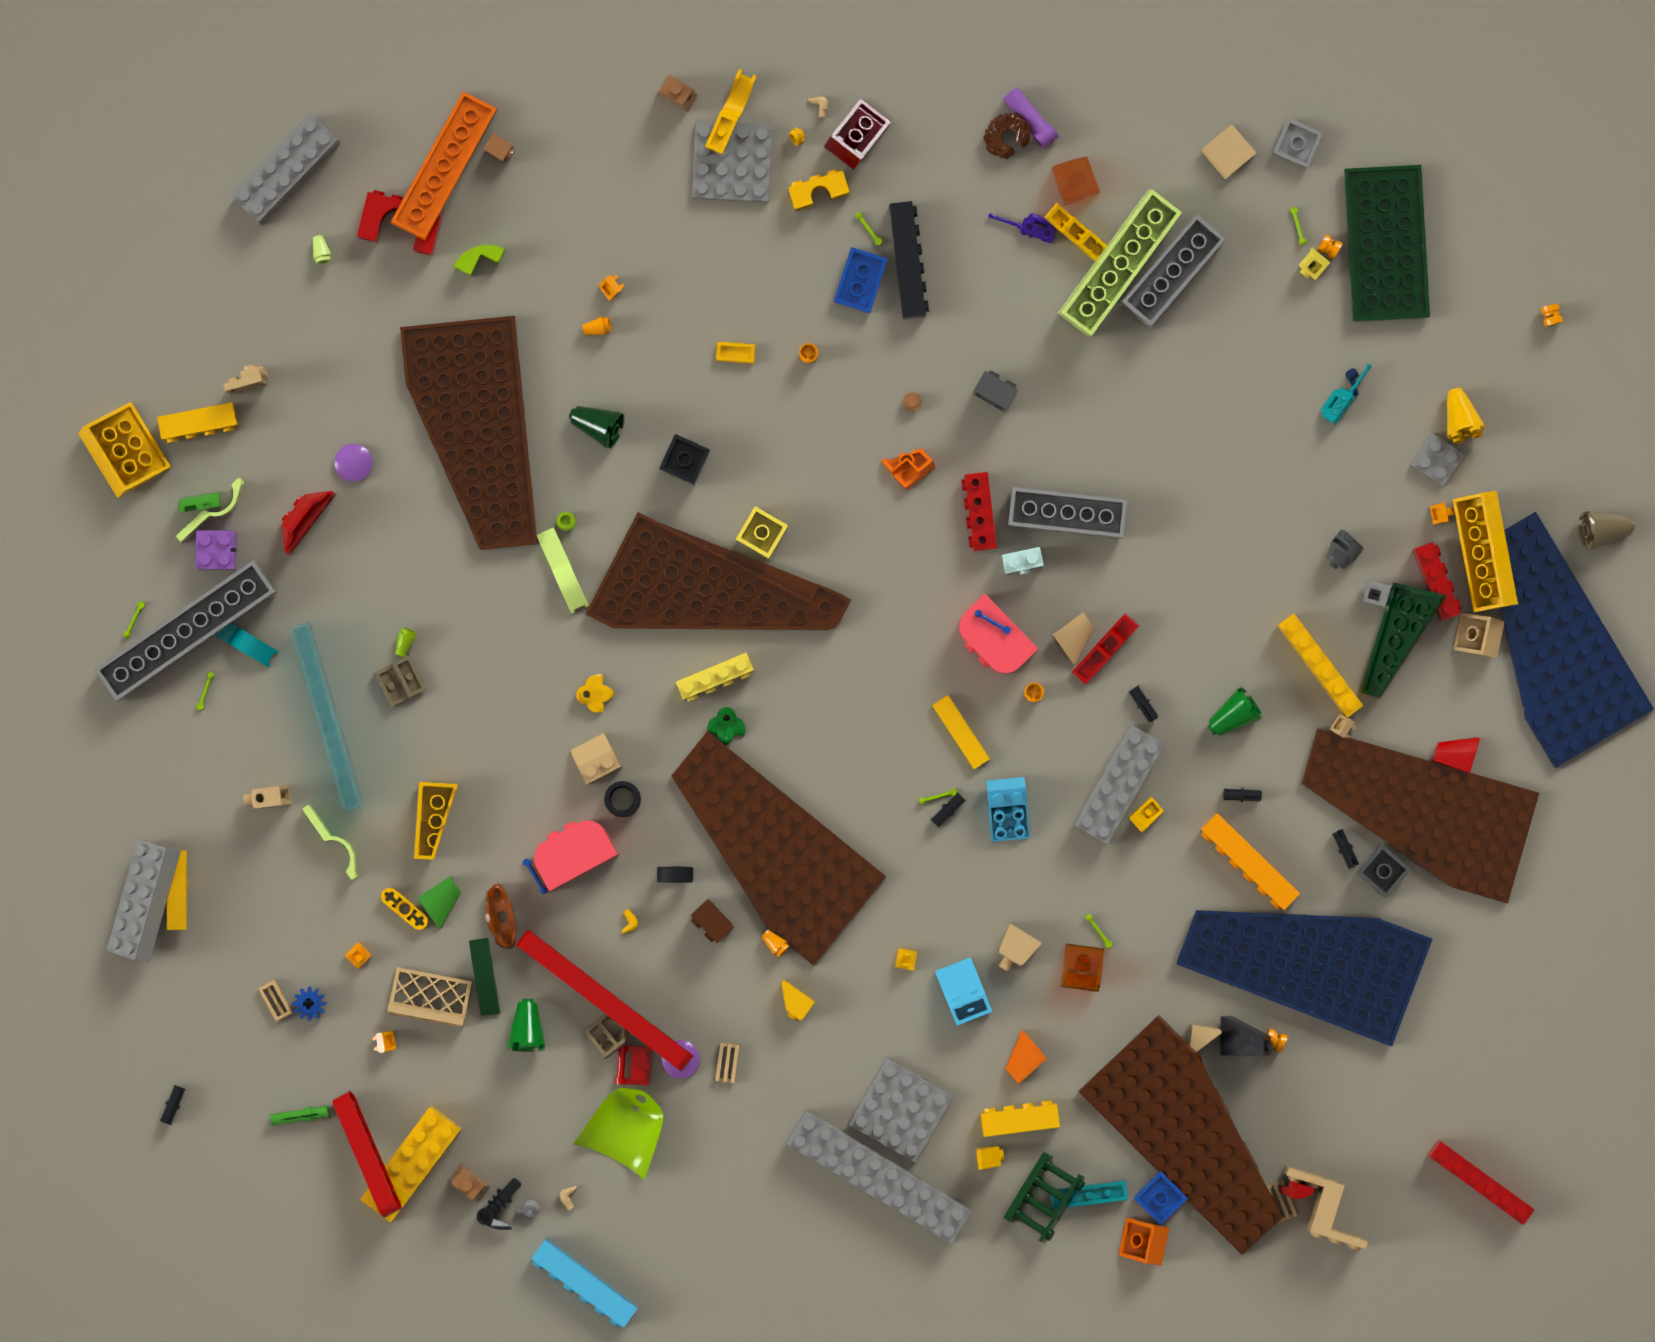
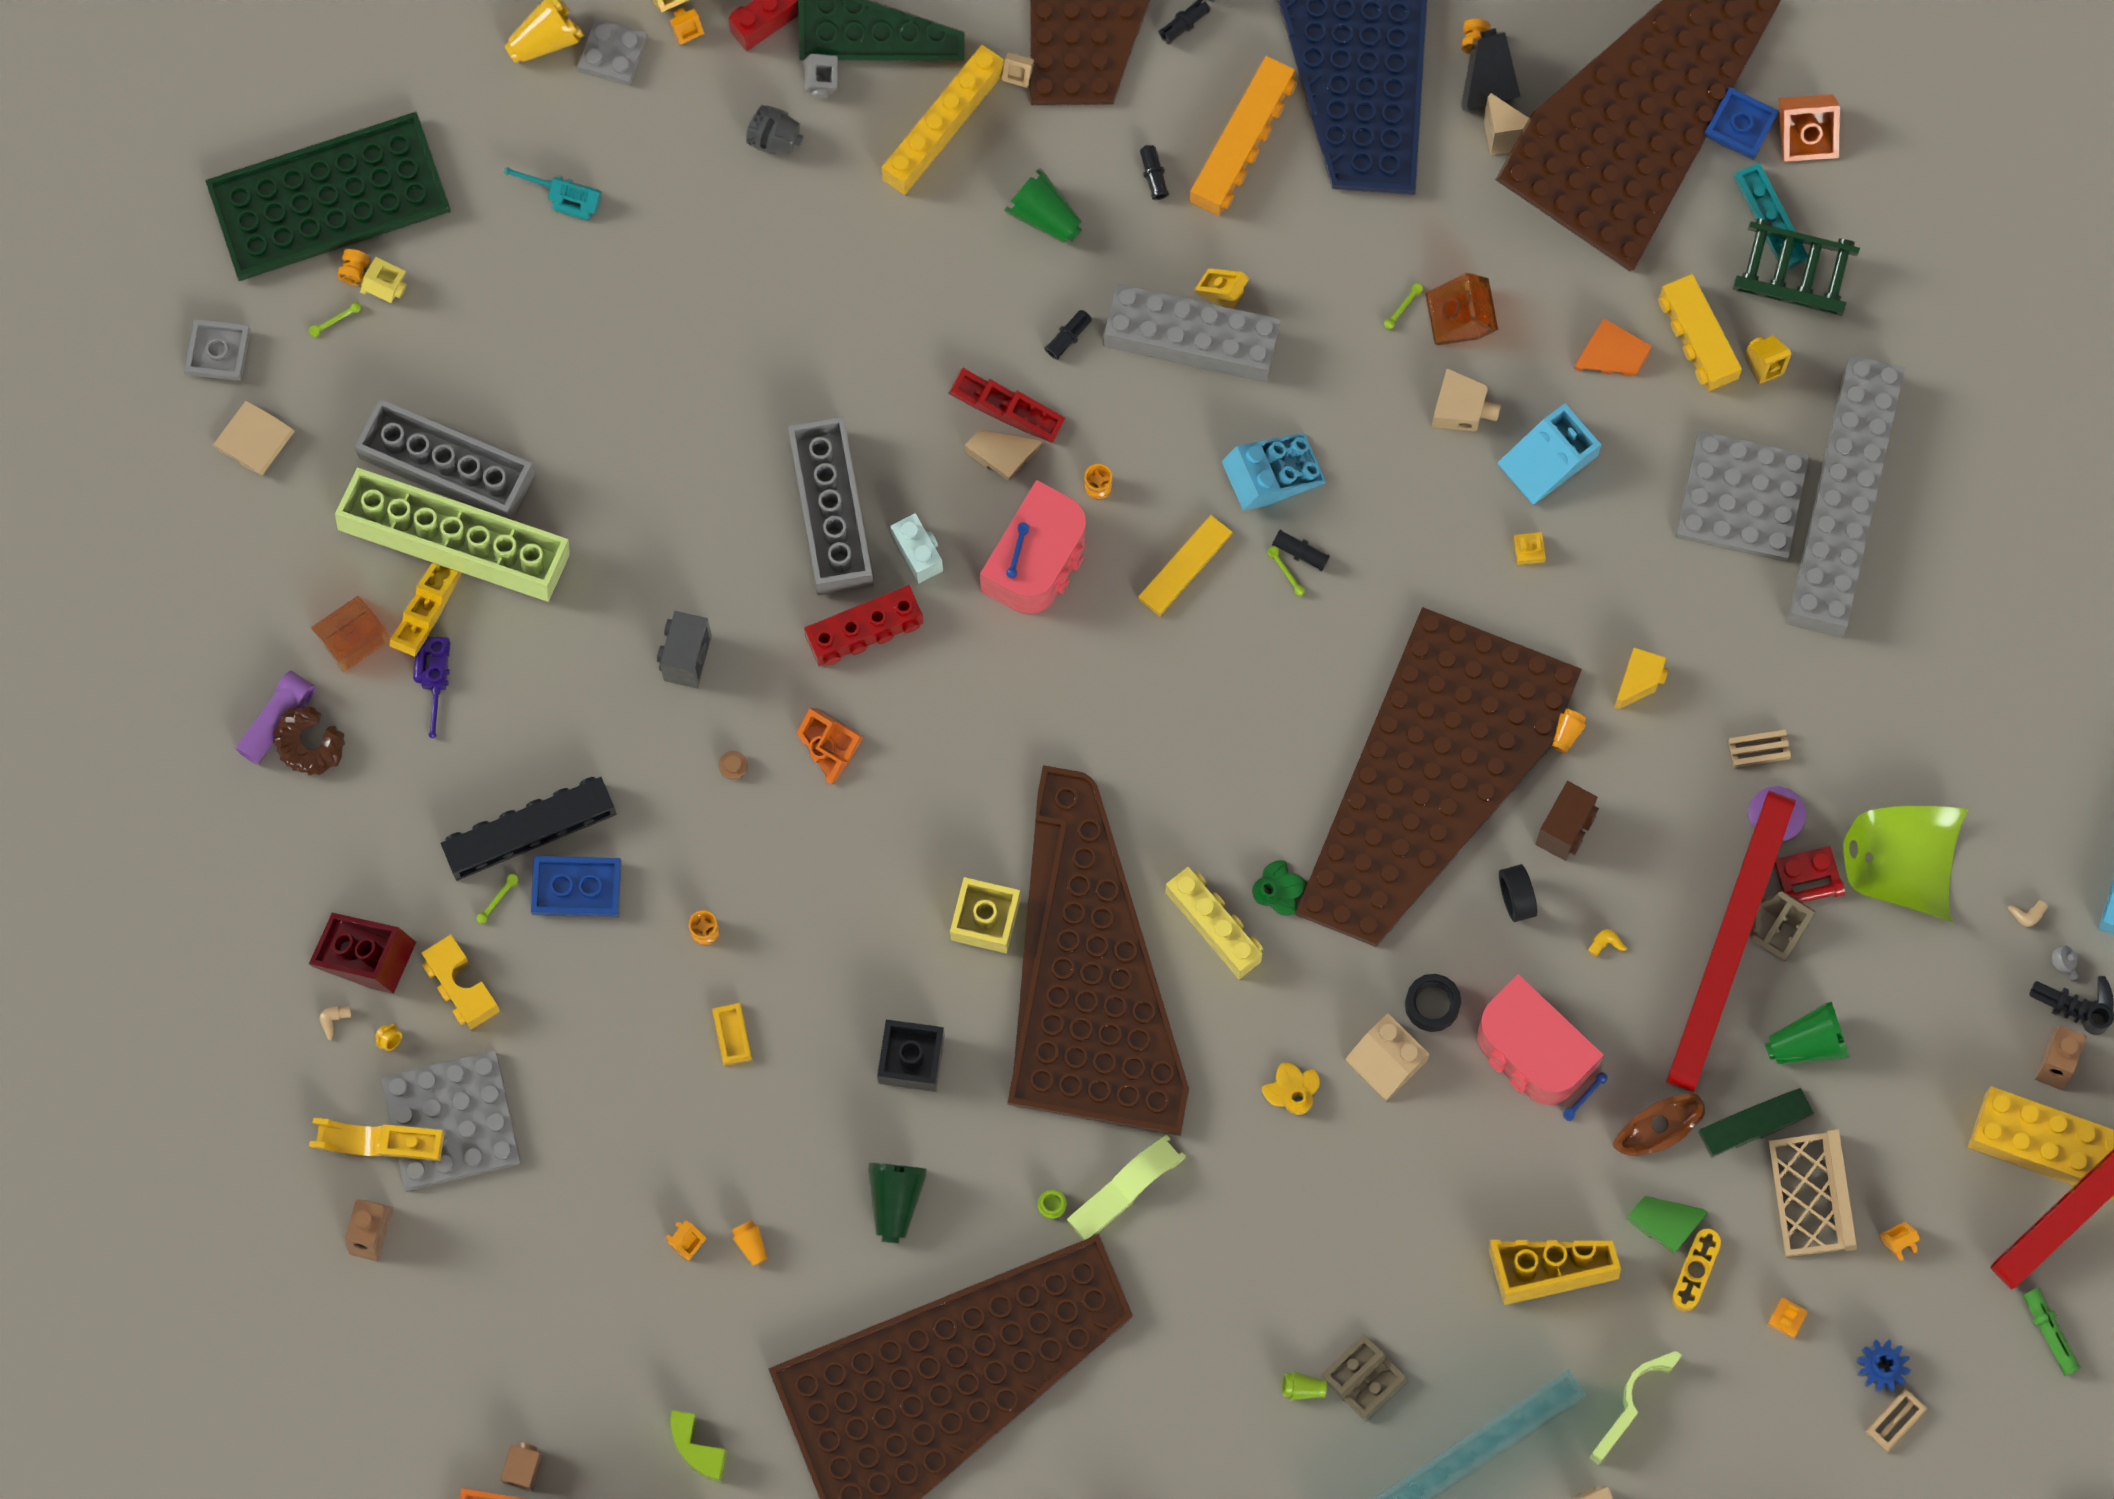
camera: 110 degrees left, 15 degrees down
(1351, 375) = (526, 192): dark blue hand -> none

